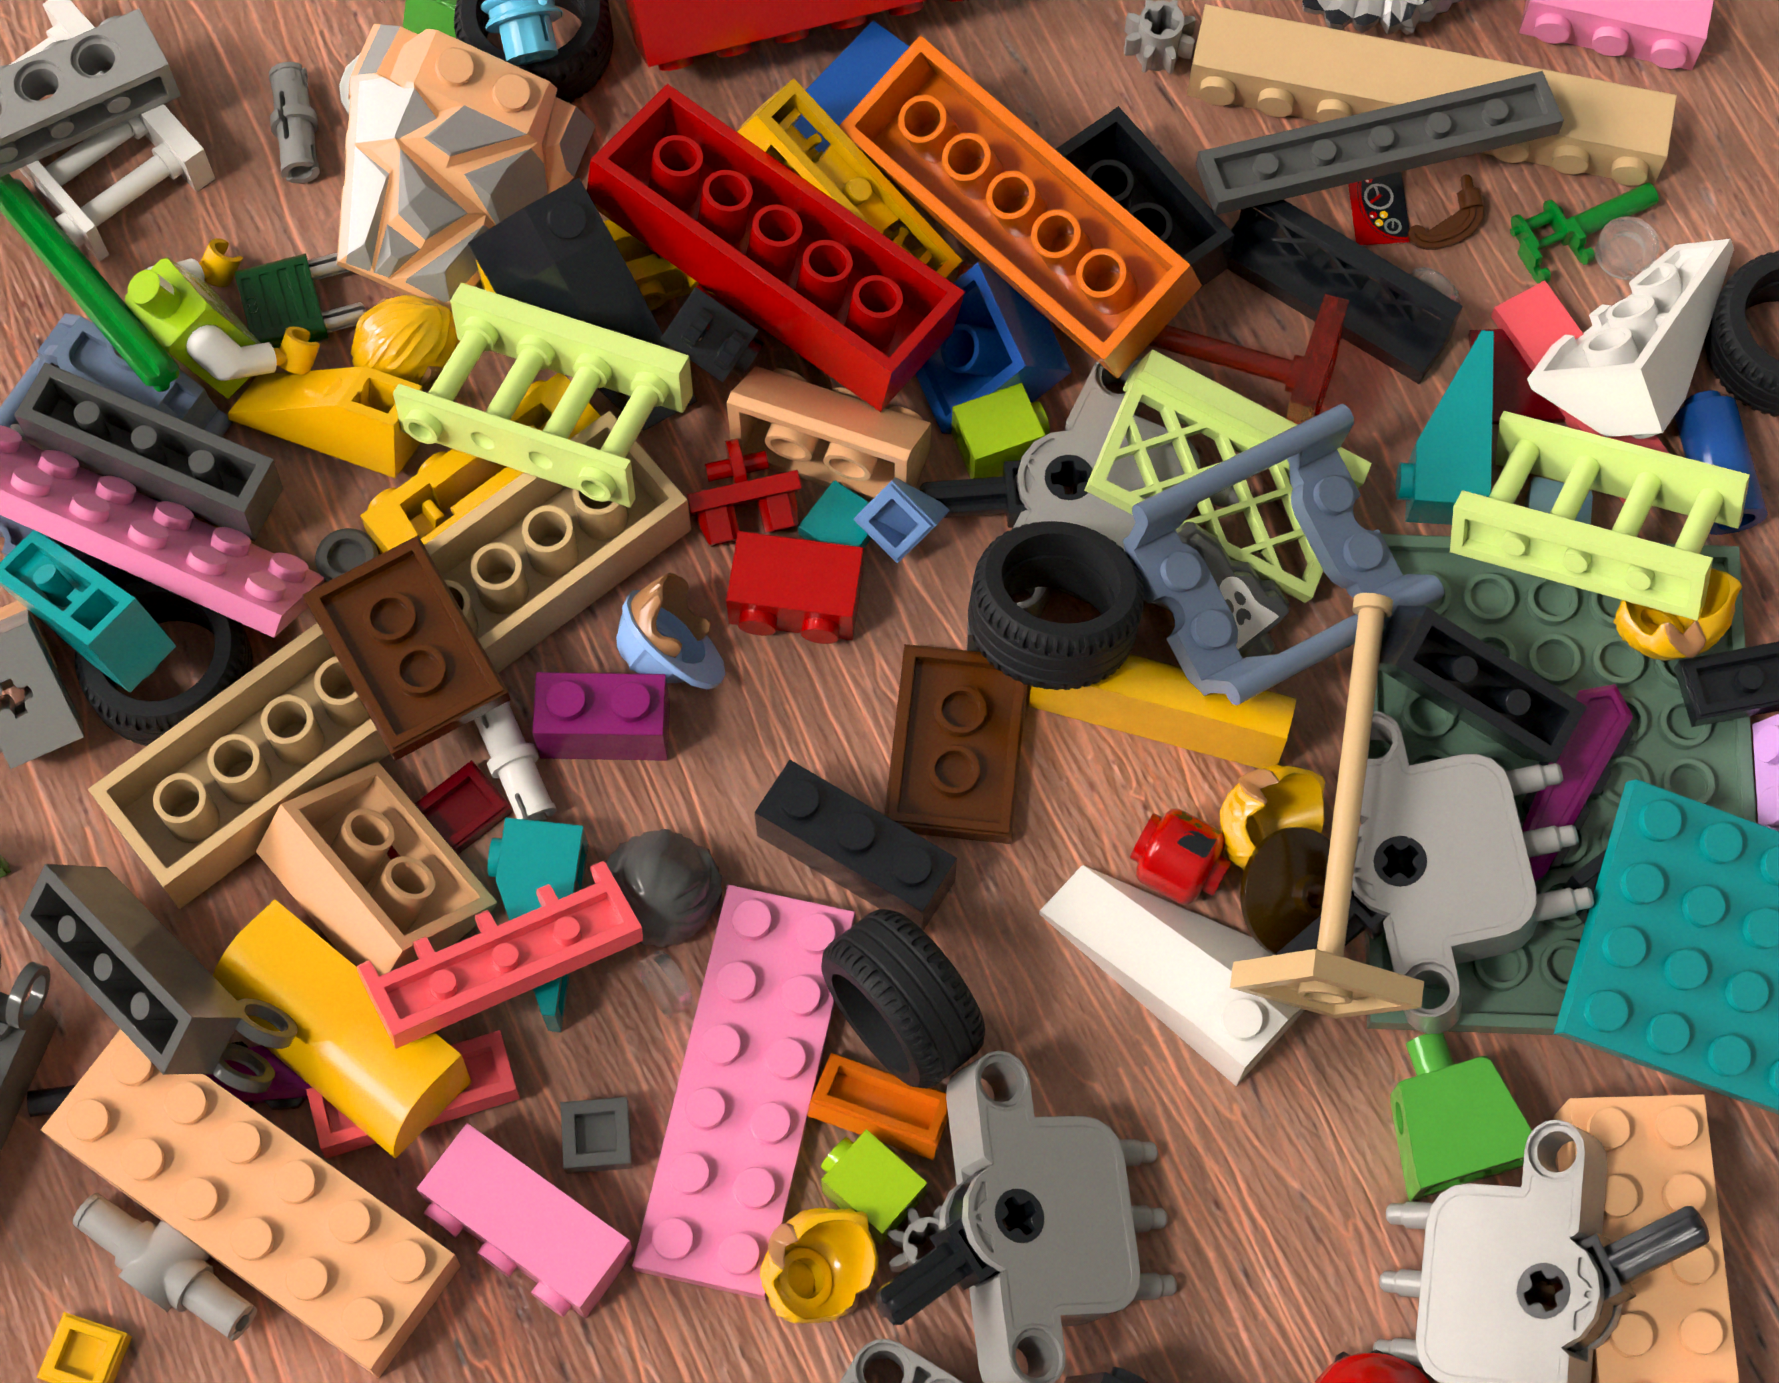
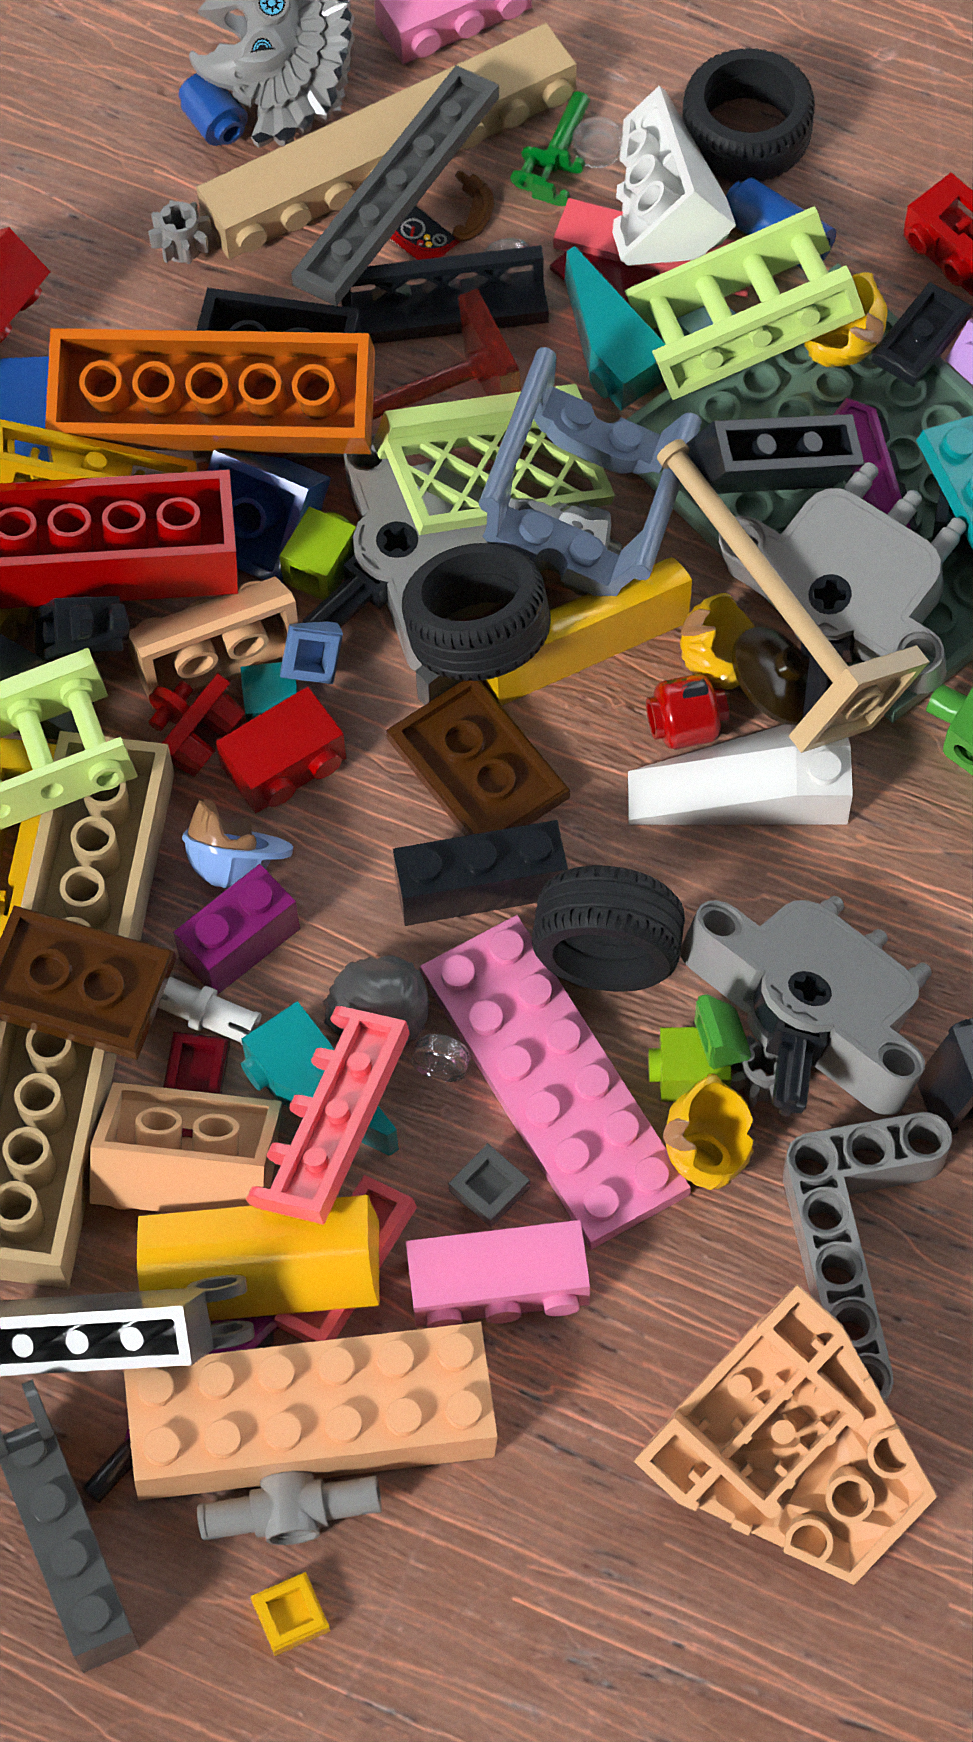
camera: 40 degrees left, 5 degrees down
(875, 1100) = (637, 1017): orange tile -> none
(909, 1183) = (720, 1032): none -> bright green slope

